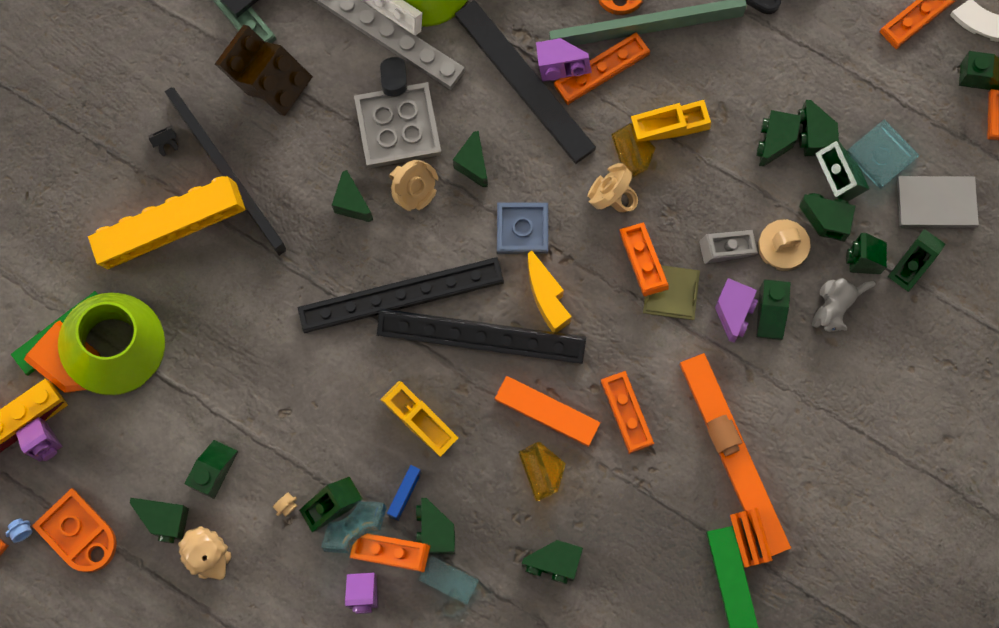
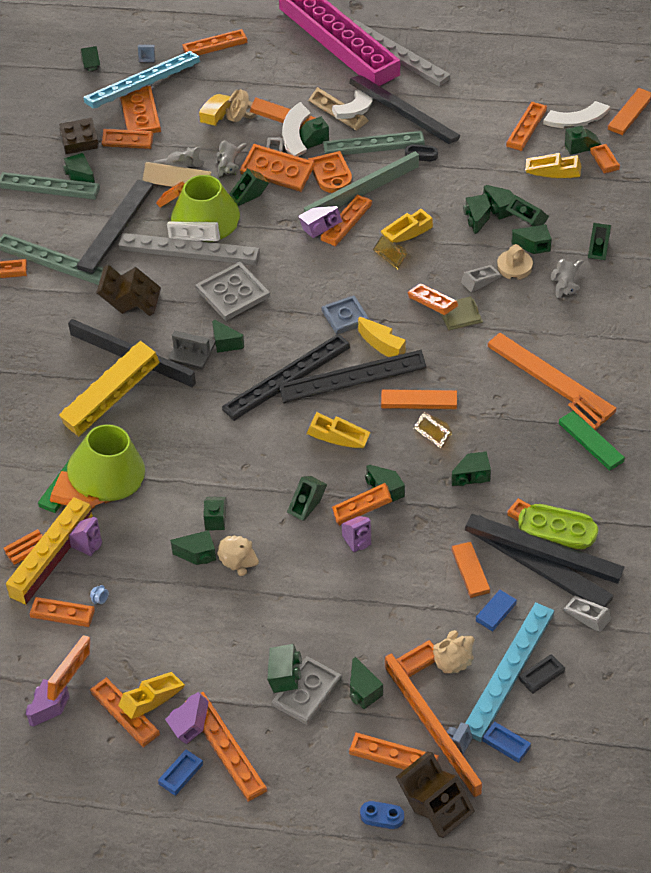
camera: 25 degrees left, 25 degrees down
(75, 531) = (140, 582): orange tile -> none
(163, 137) = (80, 350): black tile -> none
(285, 505) = (276, 510): tan plate -> none
(301, 198) = (190, 349): none -> dark grey bracket
(343, 534) = (326, 508): clear light blue tile -> none
(393, 76) = (216, 266): black tile -> none
(404, 492) = (352, 473): blue tile -> none
(413, 184) = (261, 312): tan tile -> none
(449, 580) = (409, 510): clear light blue tile -> none
(470, 160) = (293, 291): dark green slope -> none
(525, 82) = (301, 242): black tile -> none
(610, 189) = (393, 271): tan tile -> none
(627, 412) = (470, 381): orange tile -> none
(724, 435) = (538, 363): medium nougat brick -> none
(733, 306) = (503, 303): medium lavender slope -> none
(773, 309) = (528, 294): dark green slope -> none
(867, 255) = (568, 246): dark green slope -> none
(882, 154) = (548, 199): clear light blue tile -> none
(923, 101) = (554, 166): none -> yellow slope
(937, 202) = (594, 209): light grey tile -> none

